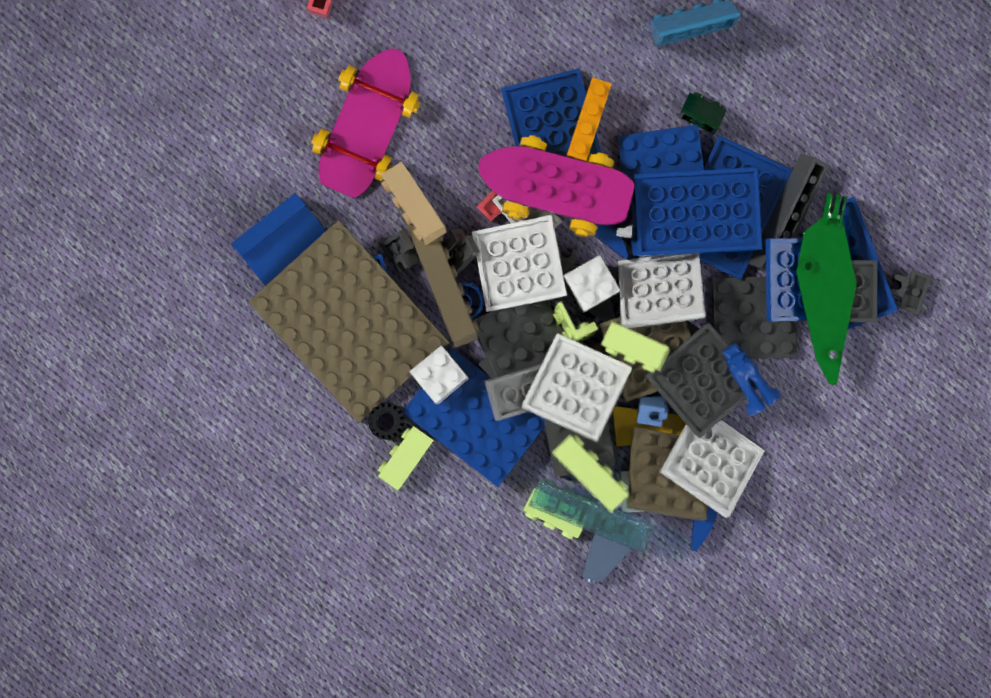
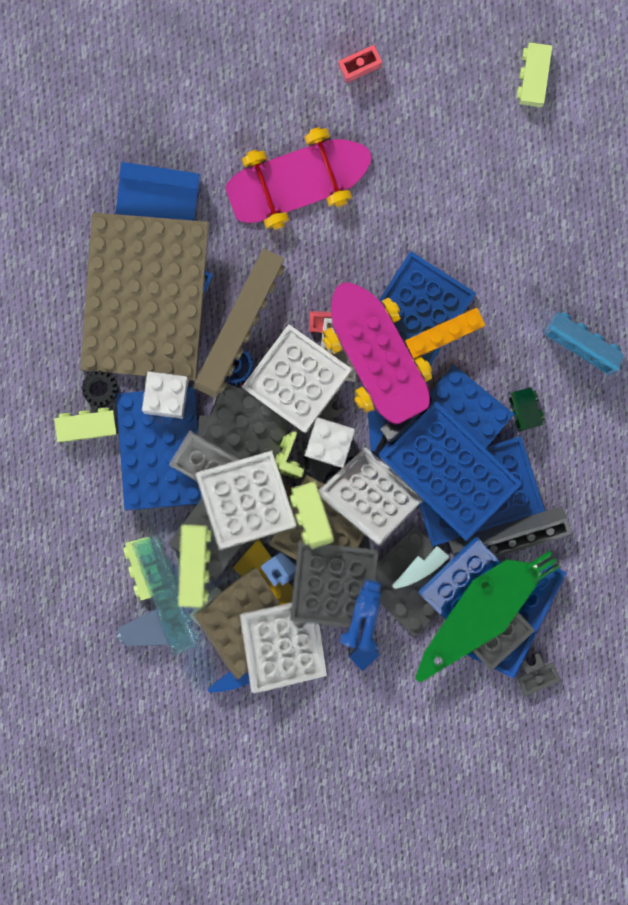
camera: 50 degrees right, 0 degrees up
(399, 251) = (227, 286): dark grey plate -> none
(413, 203) = (269, 265): tan brick -> none
(460, 248) = (269, 328): dark grey plate -> none
(750, 304) = (419, 569): none -> light aqua slope
(778, 410) = (364, 658): none -> blue brick

